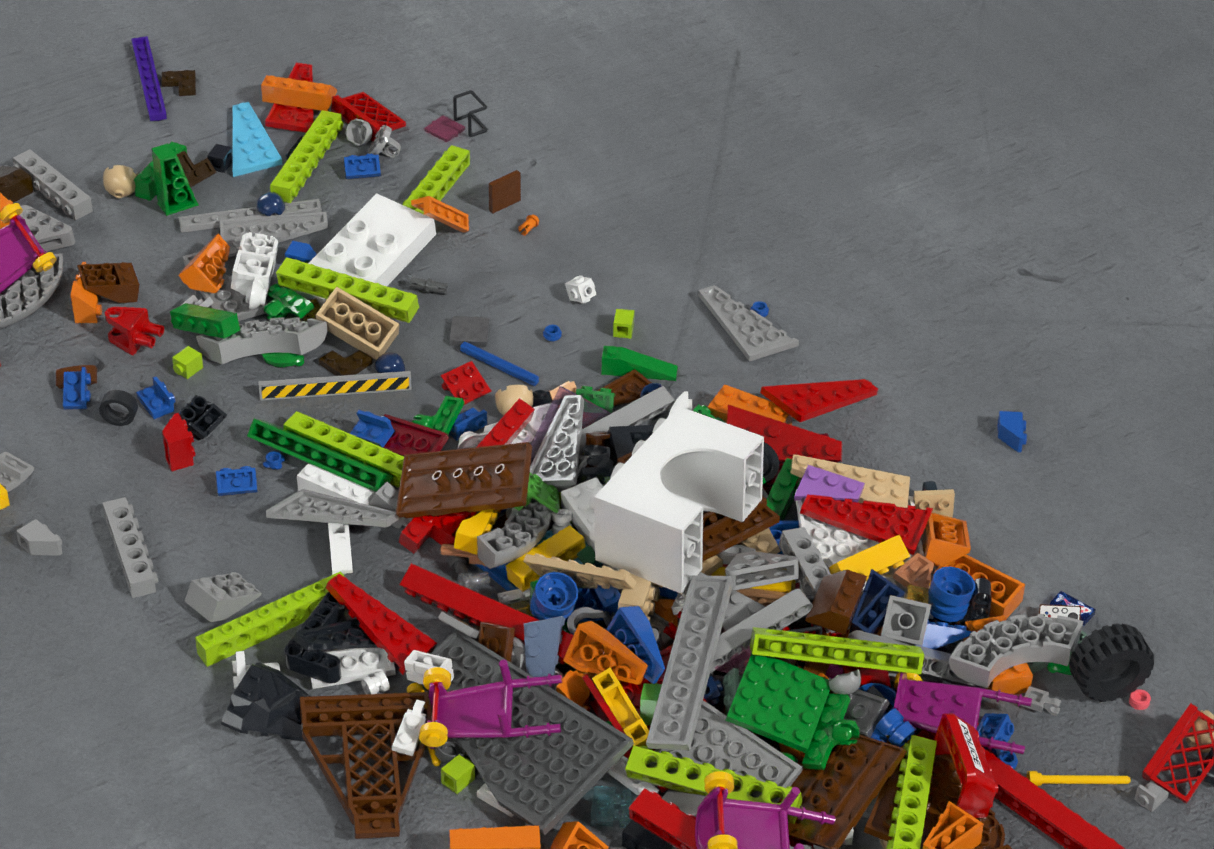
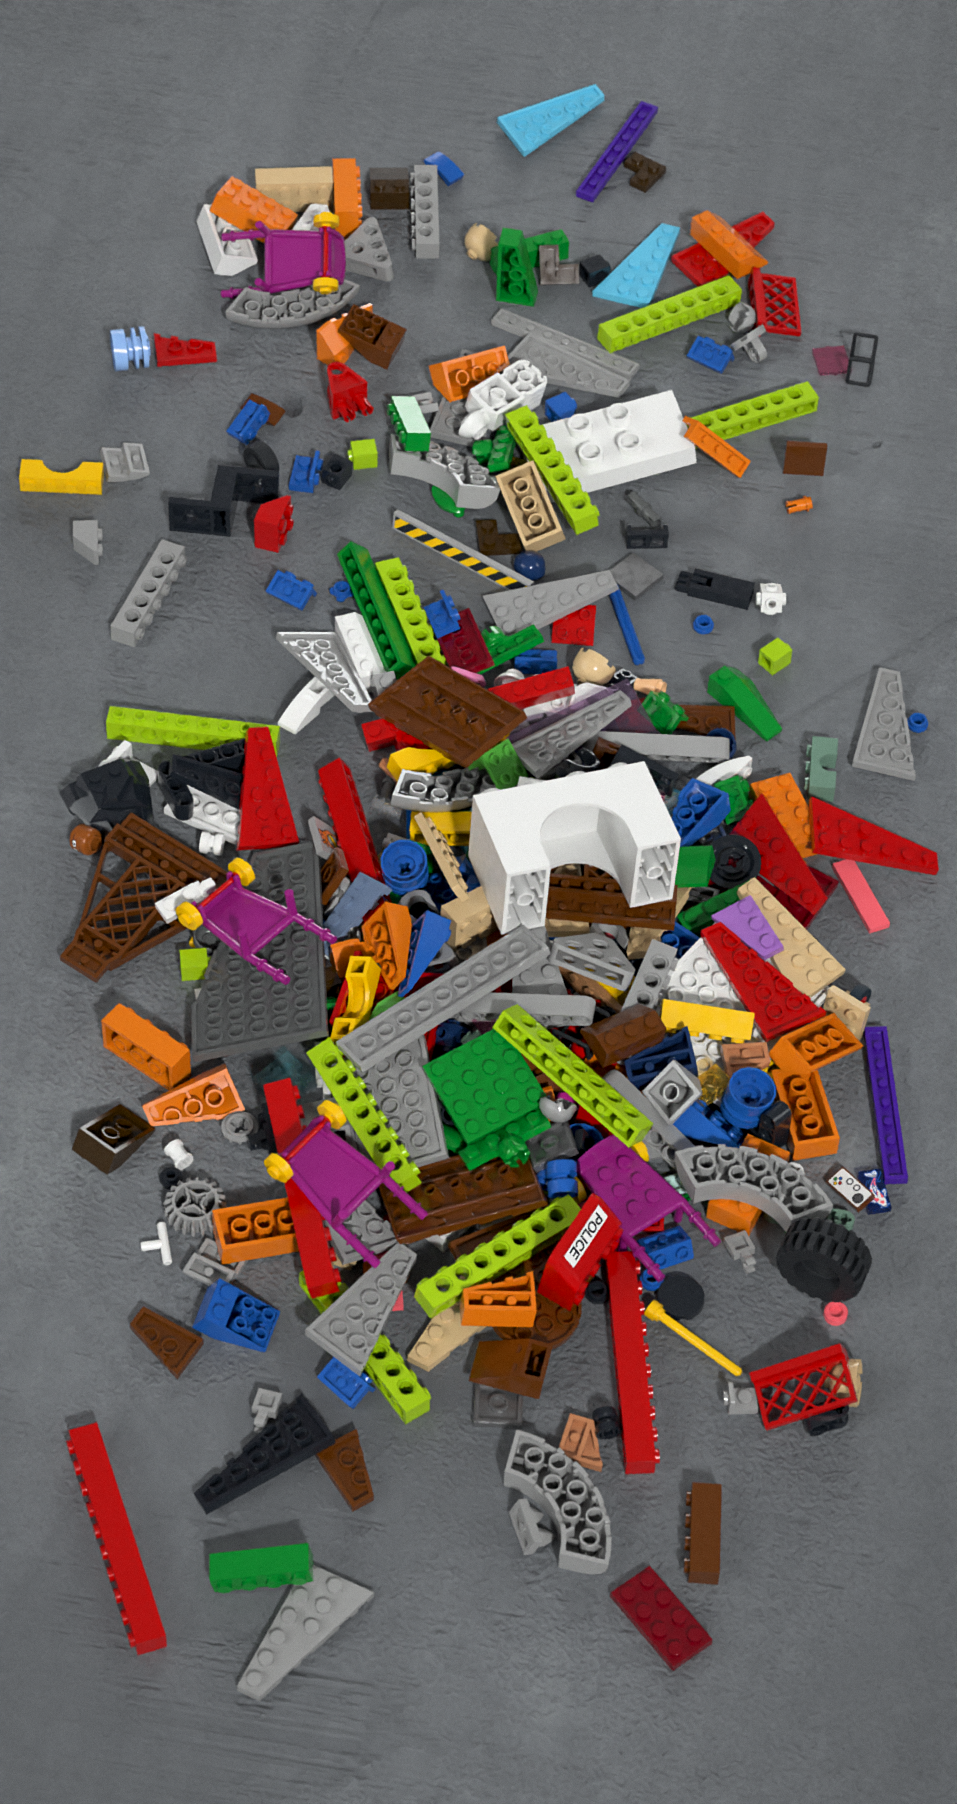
camera: 40 degrees right, 10 degrees up
(41, 150) = (445, 168): none -> blue slope
(73, 85) = (540, 122): none -> medium azure wing
(121, 449) = (218, 514): none -> black bracket
(181, 385) = (337, 472): none -> black brick
(202, 416) = (320, 511): black slope -> none
(220, 595) = (175, 684): light grey slope -> none
(270, 203) = (587, 344): dark blue hair -> none
(276, 743) = (85, 839): none -> dark orange head
(419, 662) = (252, 851): white brick -> none
(436, 378) = (547, 601): none -> light grey wing
(450, 302) = (646, 538): none -> black hinge
(534, 306) = (716, 588): none -> black hinge
(726, 365) = (822, 755): none -> sand green arch
(849, 435) = (861, 895): none -> coral tile
(1019, 551) = (885, 1105): none -> dark purple plate
(1039, 757) = (681, 1297): none -> black tile

